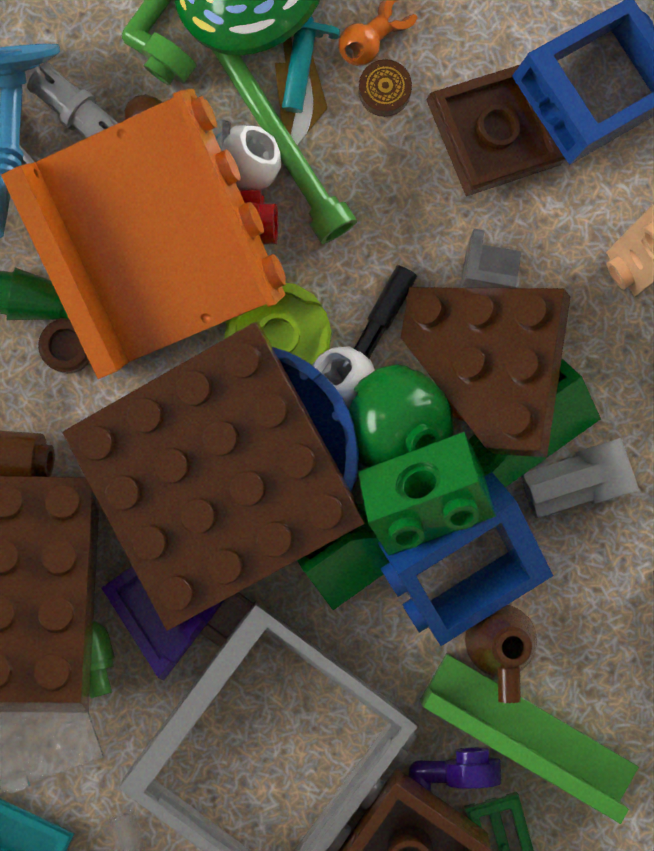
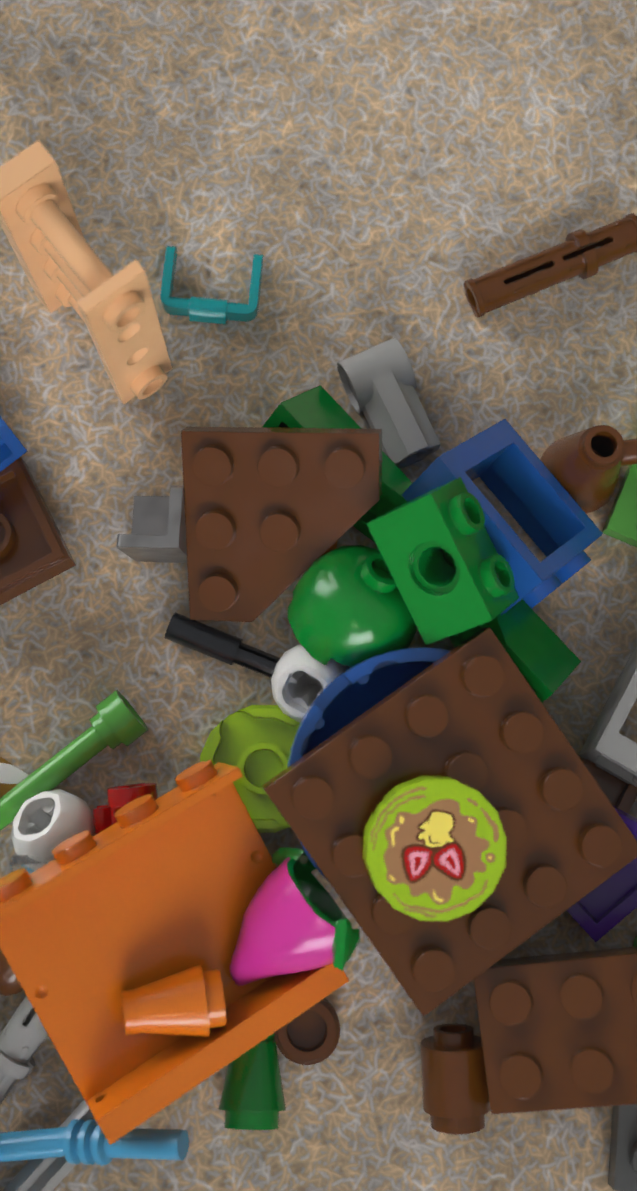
camera: 105 degrees left, 5 degrees down
(97, 237) = (177, 1004): none -> orange cone
(147, 337) = (291, 924): none -> dark pink hat
(190, 451) = (434, 848): none -> tile

